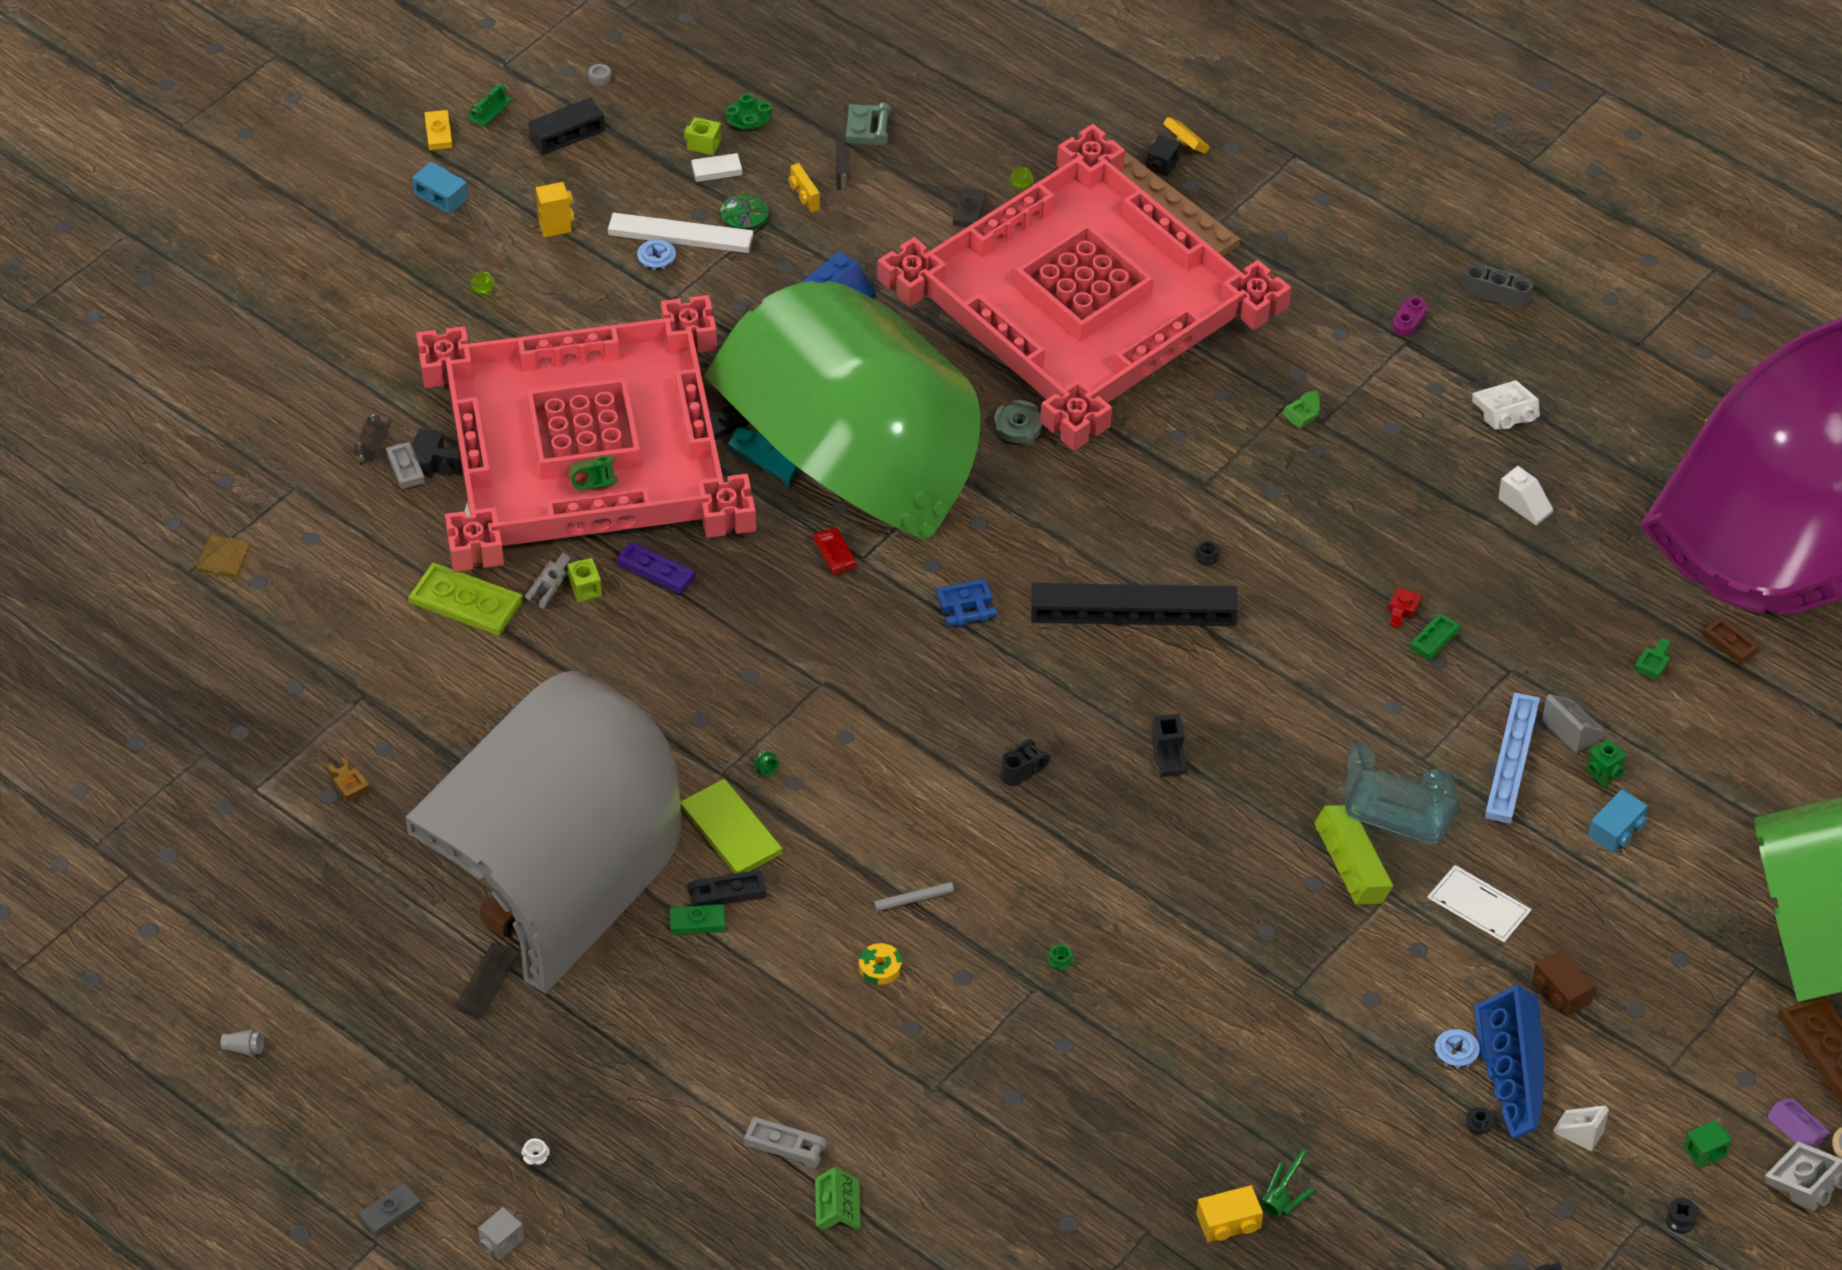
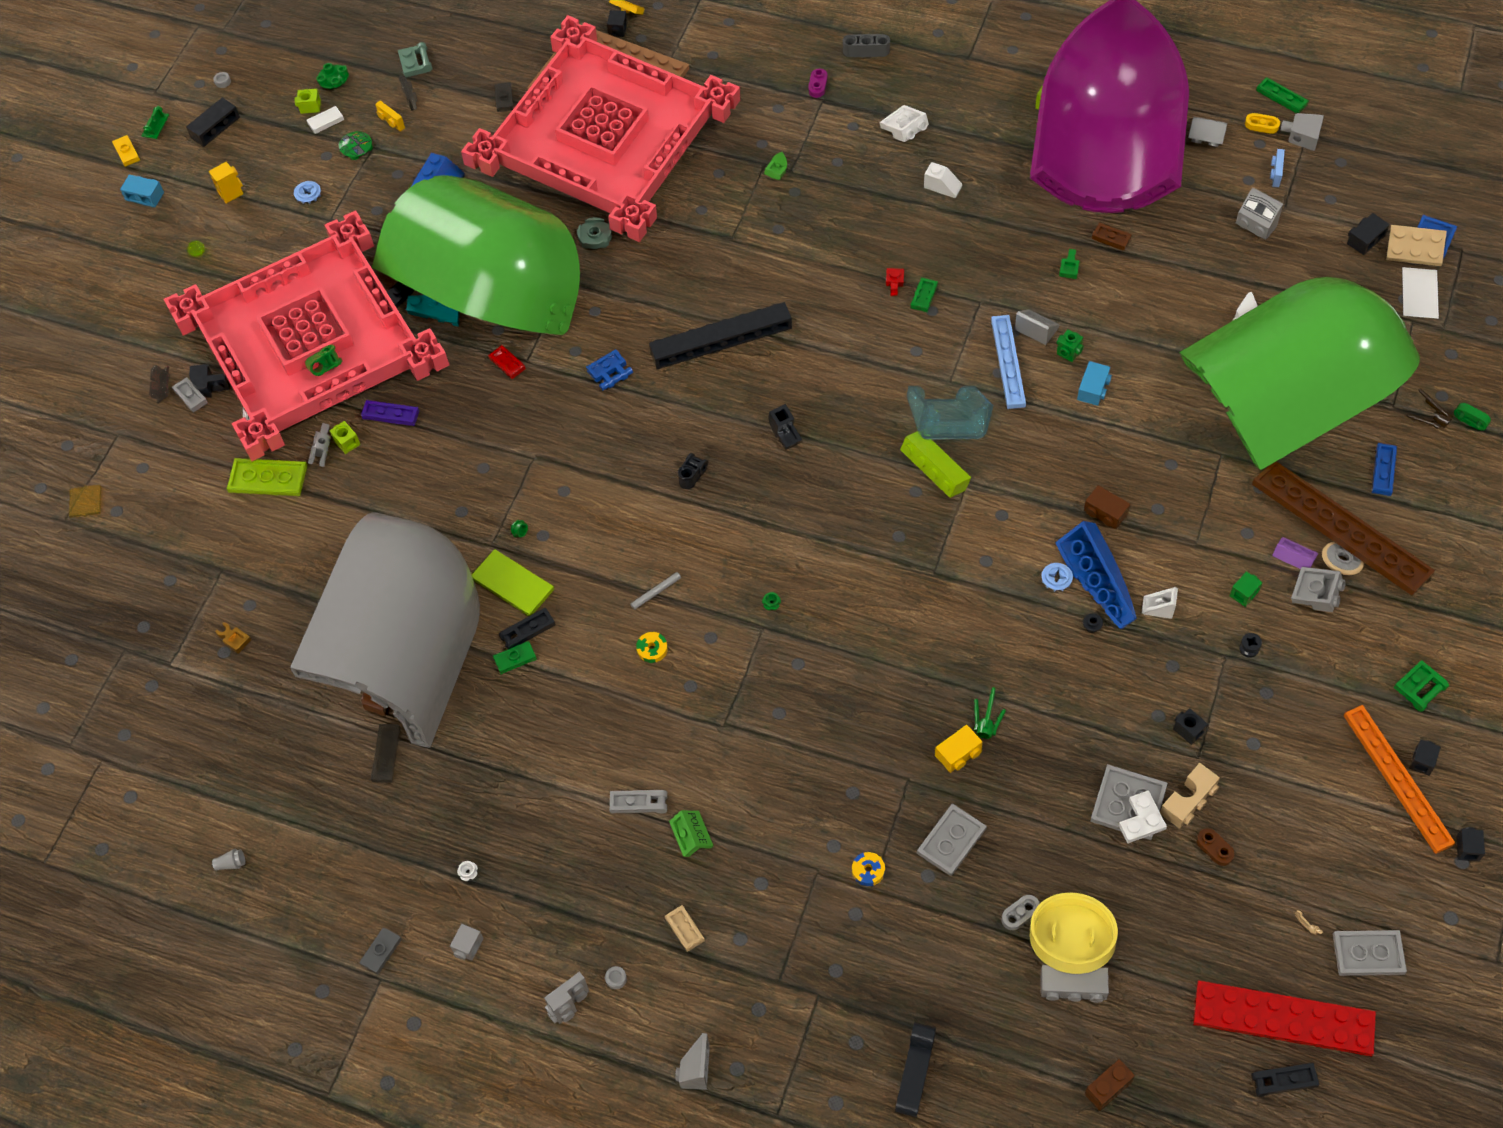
camera: 15 degrees left, 10 degrees up
(680, 232) = (317, 172): white tile -> none
(1021, 178) = (530, 66): clear neon green plate -> none
(1207, 553) = (754, 280): black plate -> none
(1479, 903) = (1027, 469): white sticker -> none

